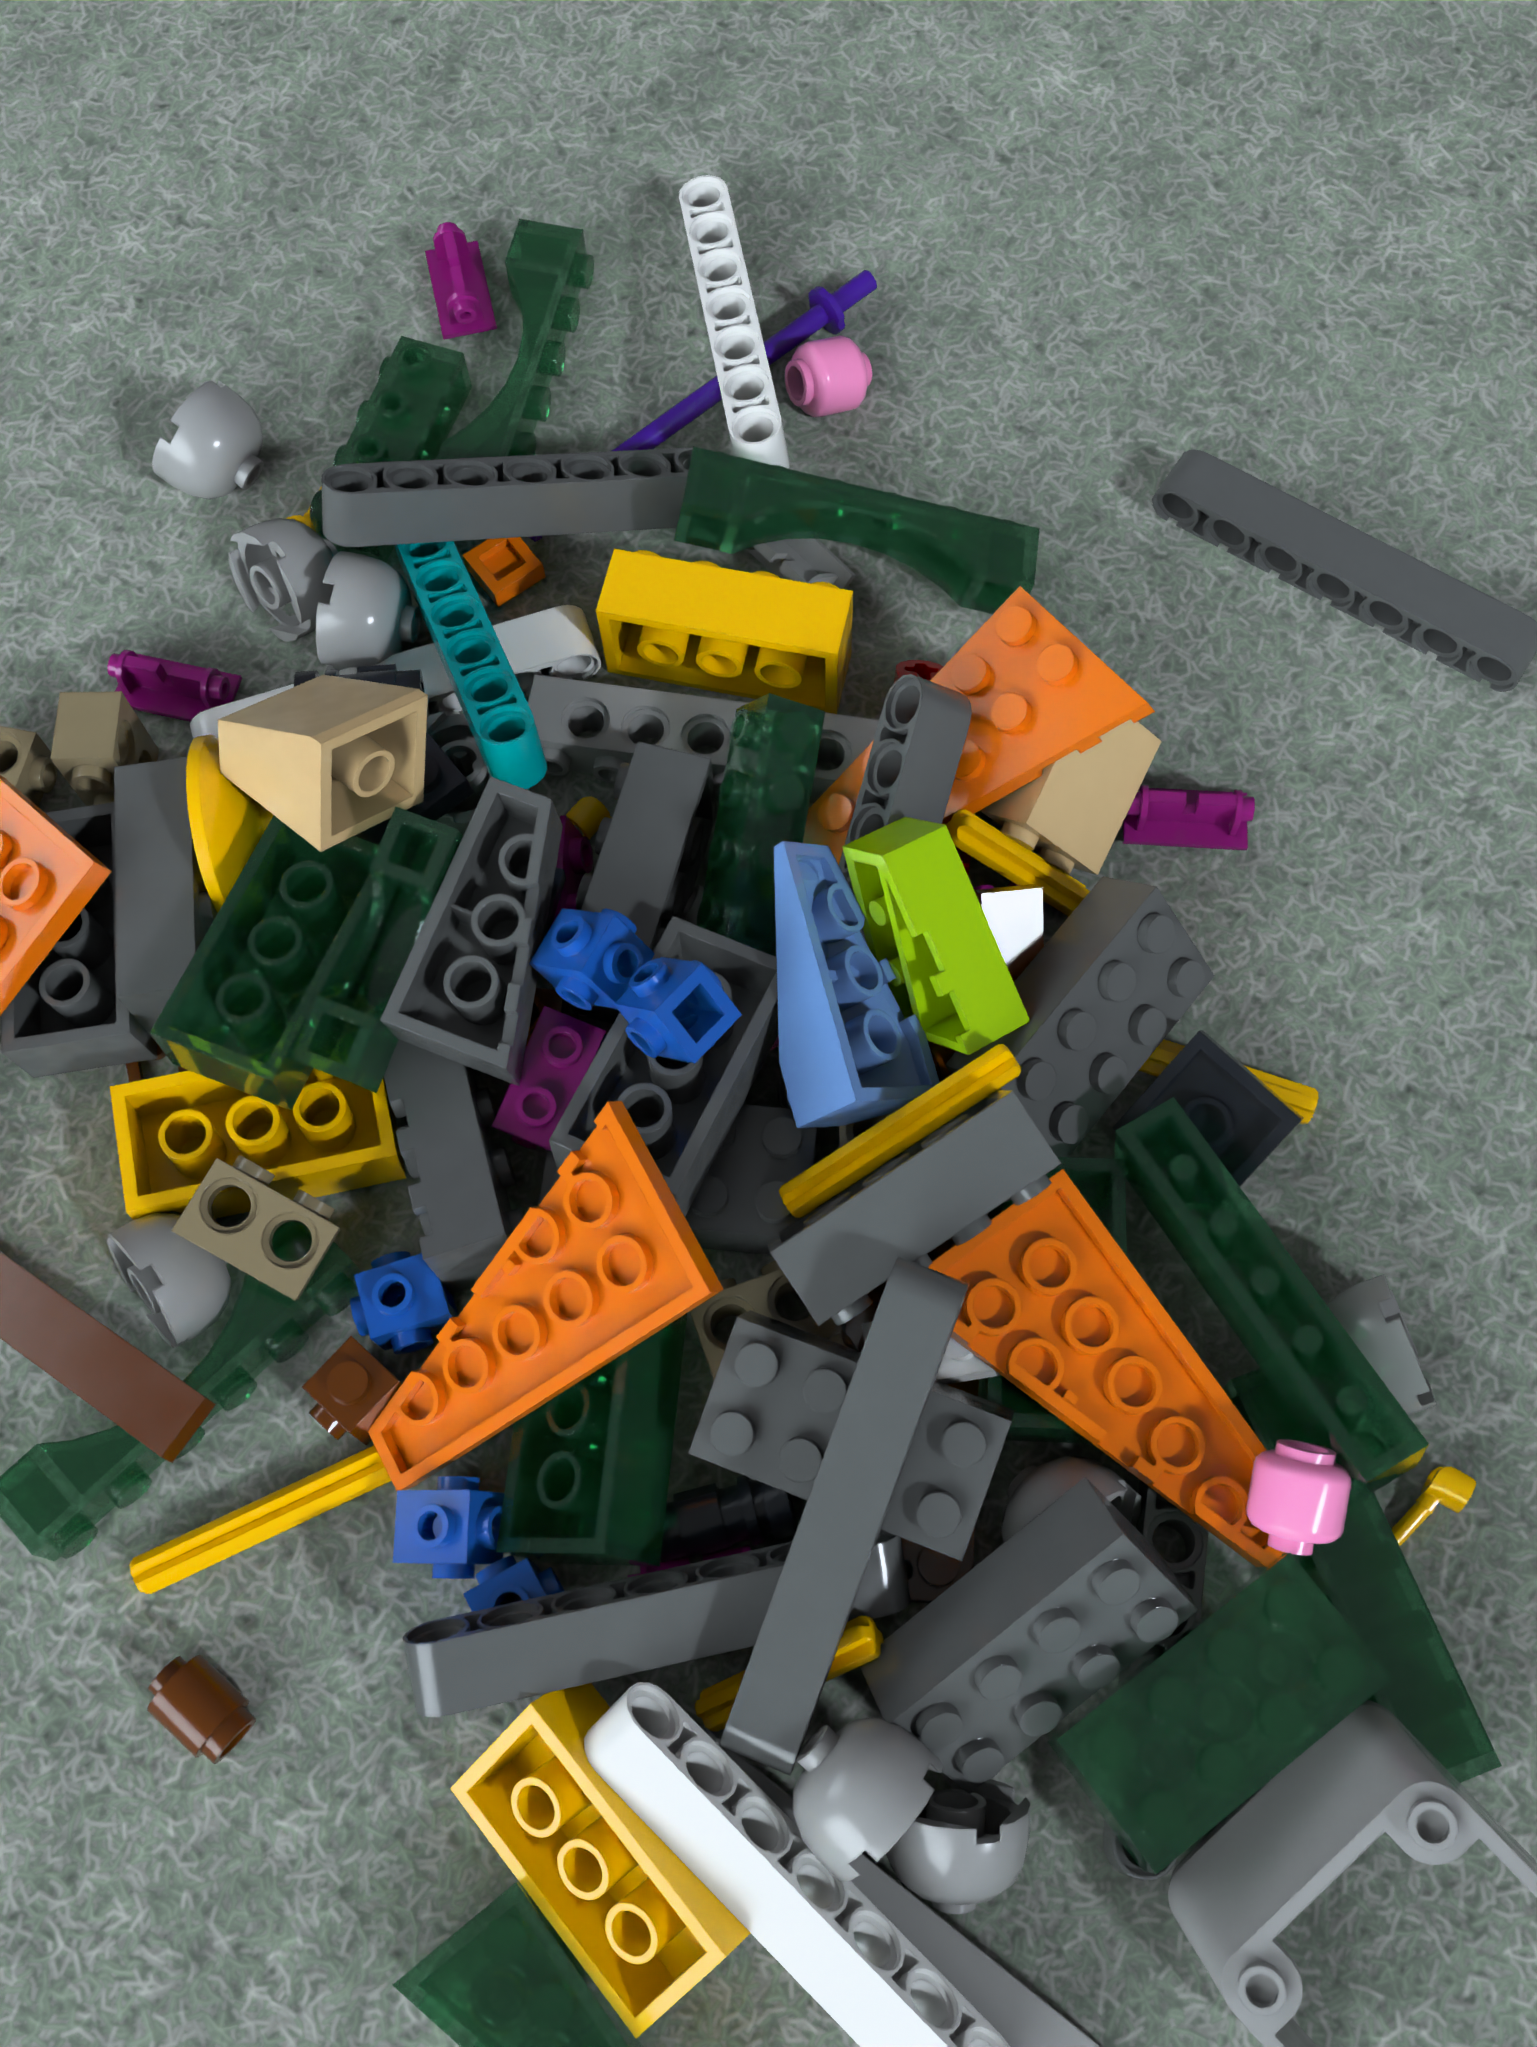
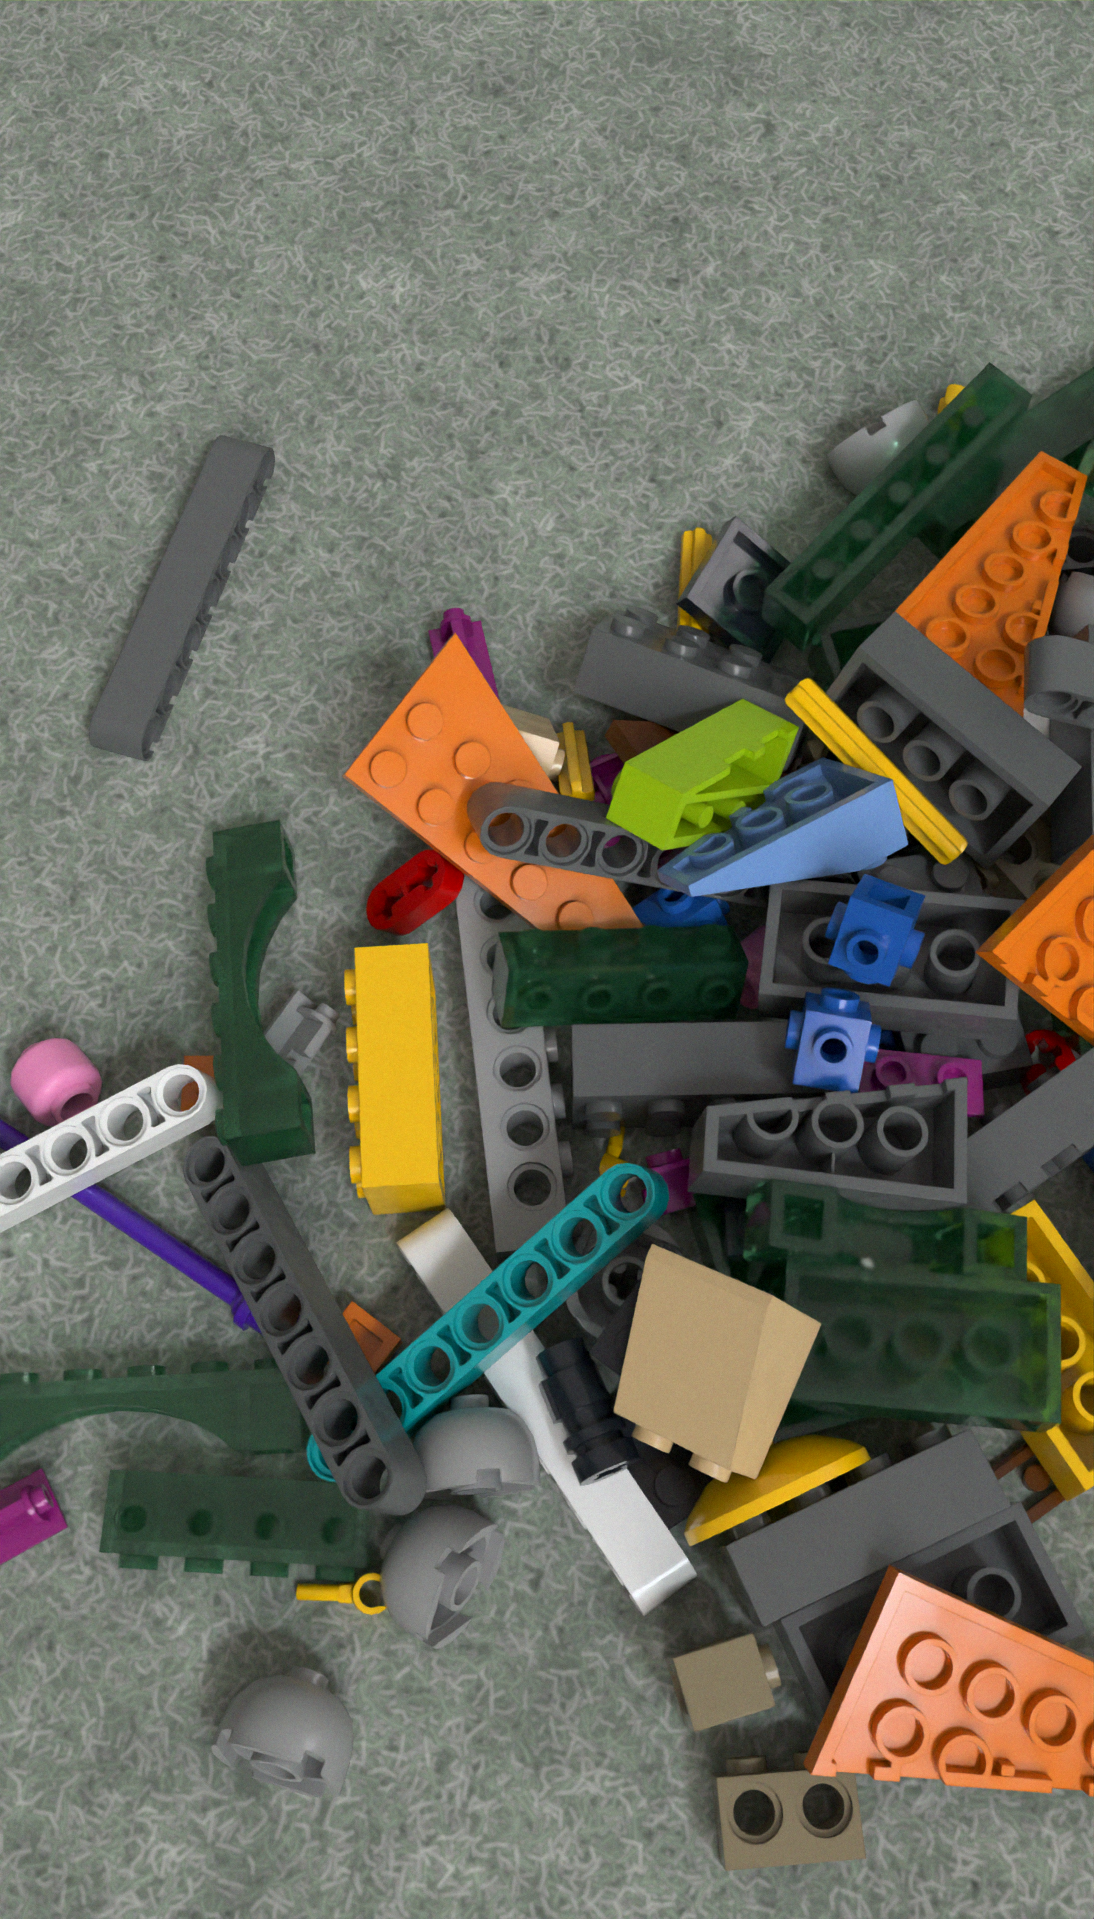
camera: 110 degrees left, 0 degrees up
(170, 686) = (595, 1661): magenta hinge -> none
(1298, 1496) = (1043, 450): bright pink head -> none

